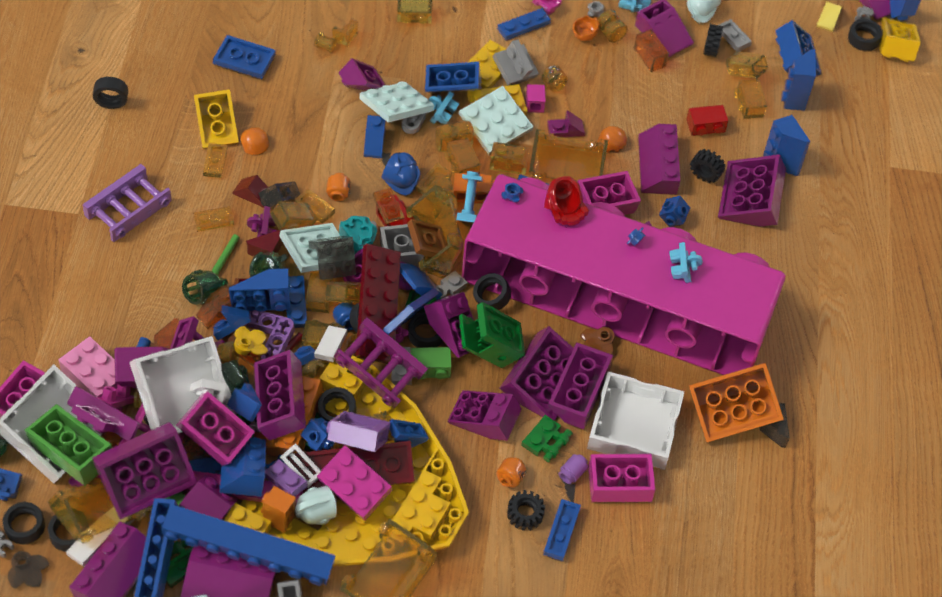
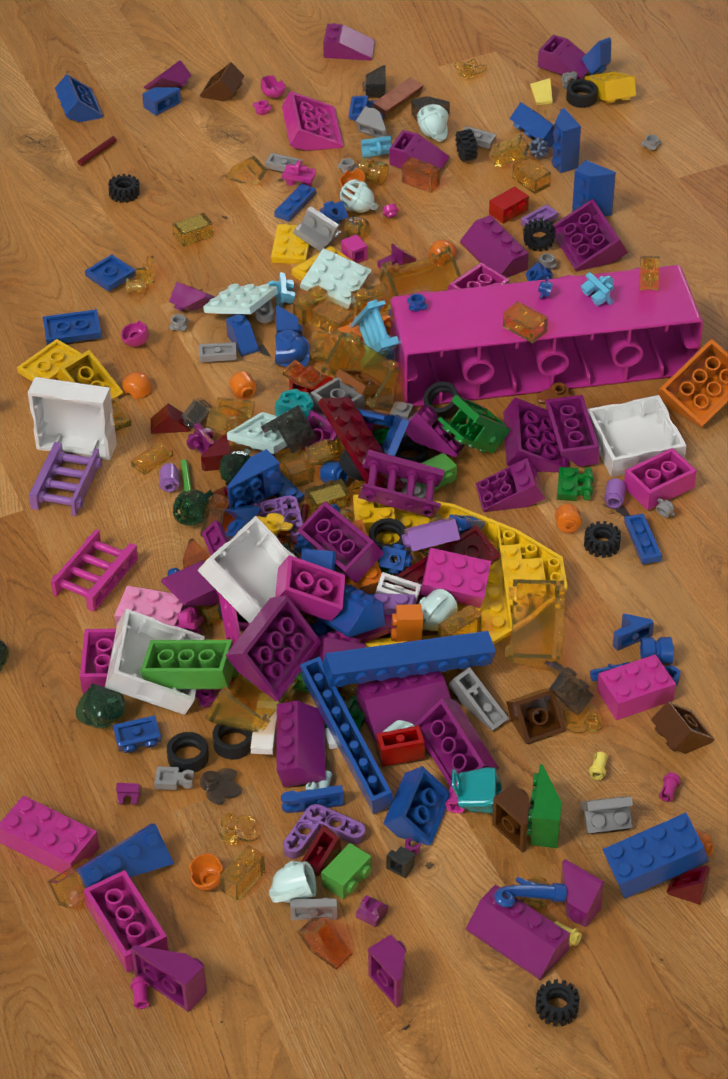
camera: 25 degrees left, 10 degrees down
(84, 321) = (103, 584): none -> dark pink fence
(101, 415) = (199, 626): magenta bracket -> none
(161, 151) = (72, 415): none -> white tile
(199, 81) = (48, 361): none -> yellow plate
(210, 246) = (169, 477): none -> medium lavender brick
(215, 388) = (271, 564): white bracket -> none
(288, 90) = (135, 334): none -> dark pink hair
(314, 18) = (110, 272): none -> blue plate
(326, 533) = (463, 622): none -> clear yellow brick
(330, 343) = (344, 493): white tile -> none
(334, 96) = (178, 322): none -> light grey plate
(343, 142) = (217, 352): none -> light grey plate
(419, 146) = (286, 320): none -> blue slope
(453, 77) = (275, 260): blue slope -> none
(548, 48) = (334, 211): none -> blue brick
(565, 201) = (467, 287): red hair -> none
(577, 49) = (362, 200): none -> light aqua helmet
(590, 263) = (525, 322): none -> brick
(597, 74) = (390, 210): none -> dark pink plate
(606, 509) = (665, 508): none -> light grey plate
(698, 196) = (547, 260): none -> light grey plate
(726, 146) = (544, 212): none -> medium lavender plate
(740, 270) = (649, 273): none -> clear yellow hips
(778, 74) = (538, 148): none -> sand blue gear
(891, 117) = (651, 142): none -> light grey plate

